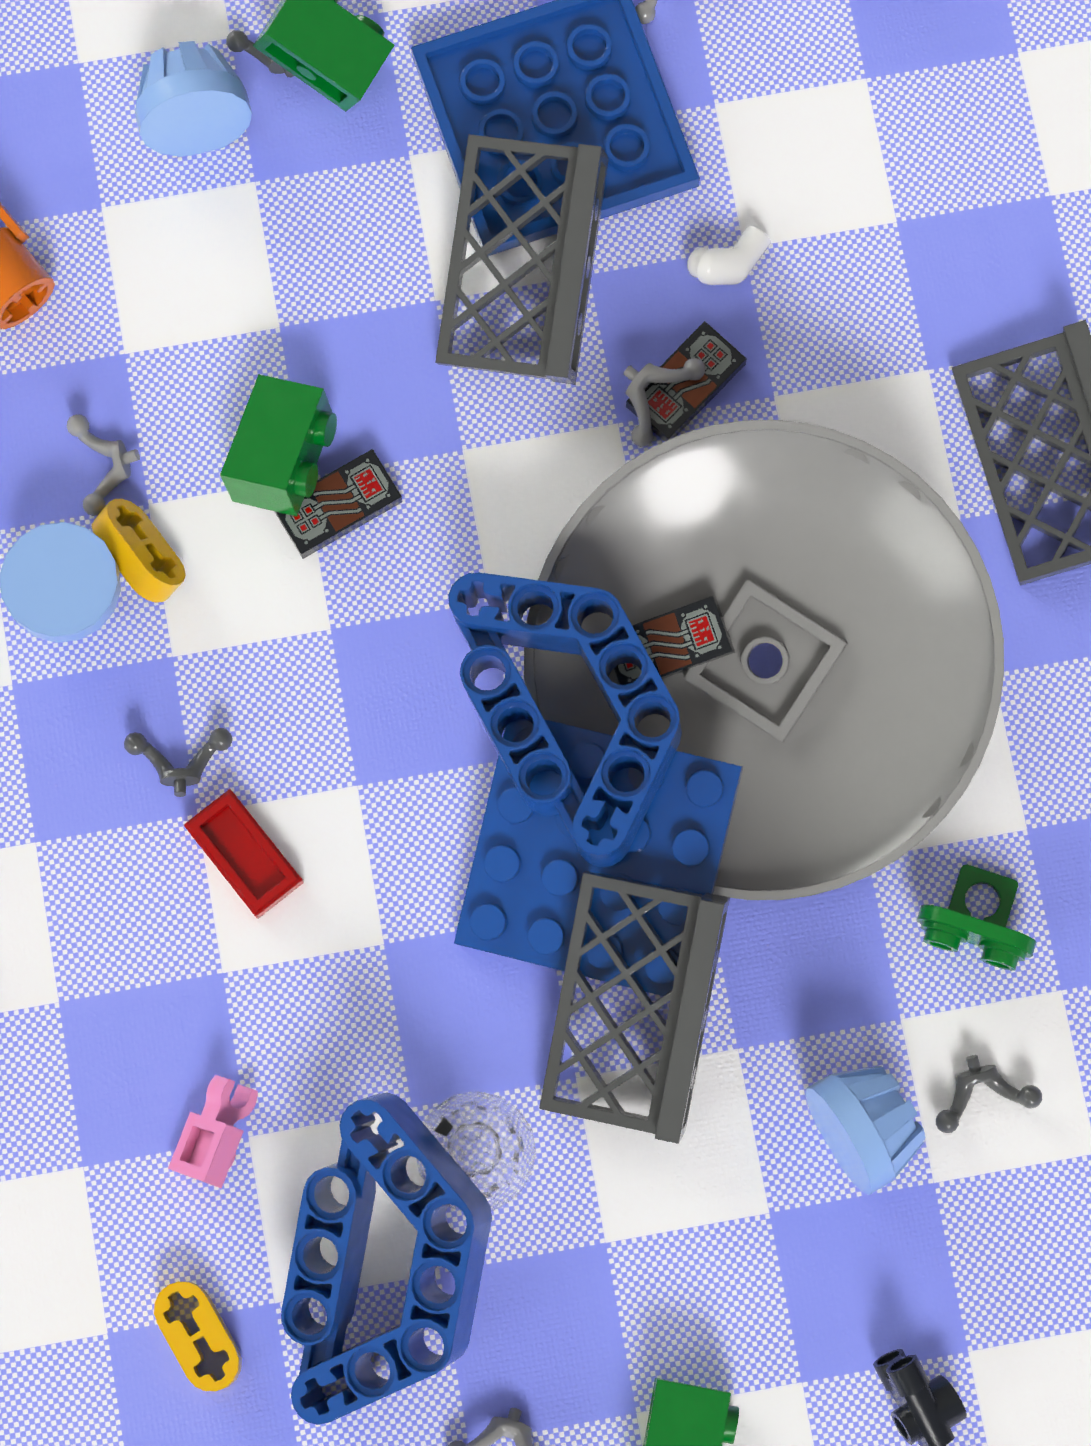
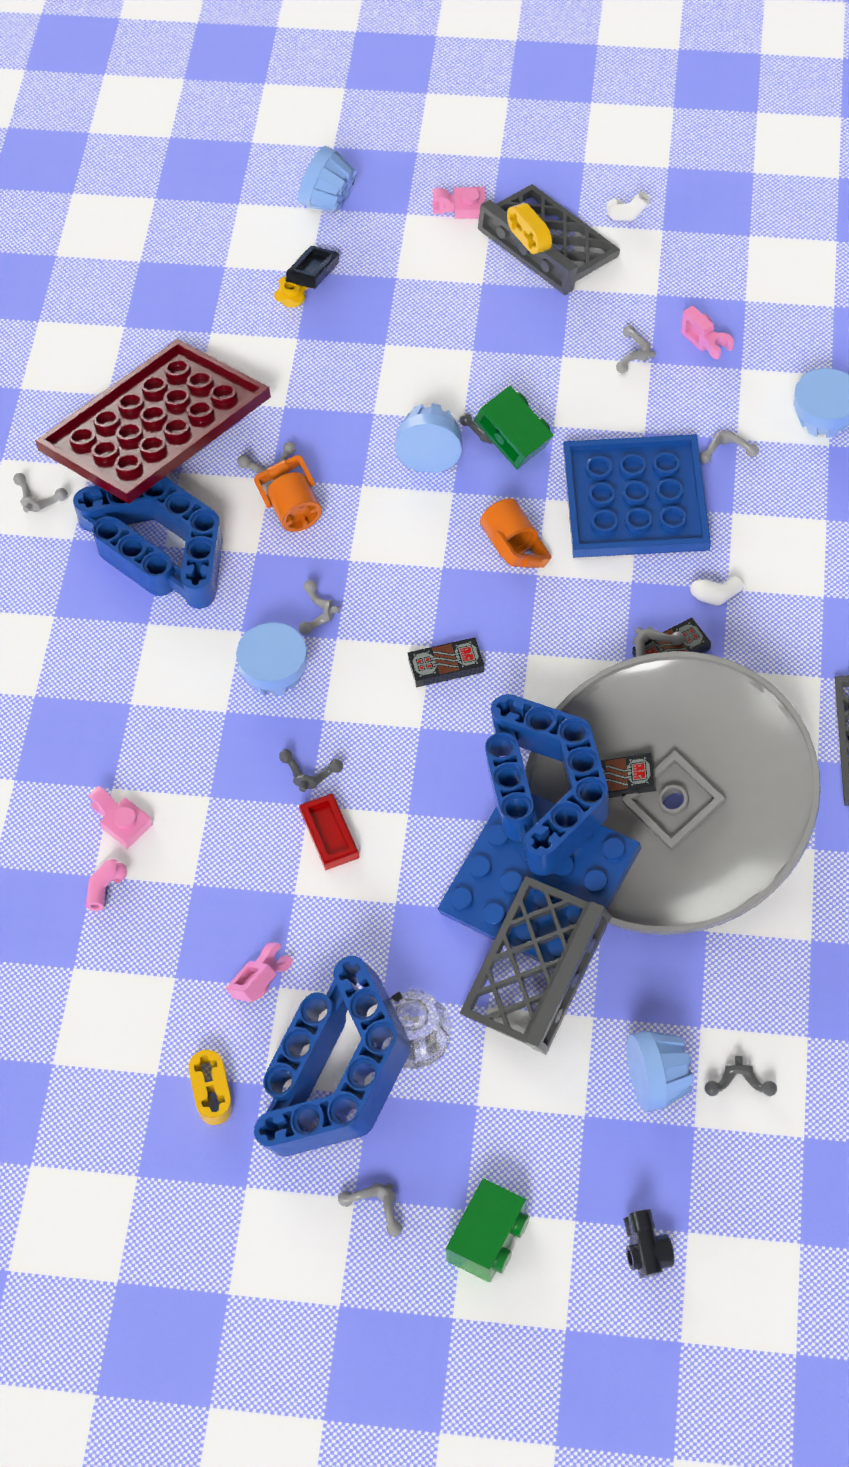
camera: 20 degrees right, 20 degrees down
(139, 550) = (323, 656): yellow beam -> none
(279, 445) = (420, 619): green brick -> none
(377, 243) = (514, 535): none -> orange piece
(571, 264) = (622, 560): dark grey fence -> none
(950, 926) = (750, 975): green bracket -> none

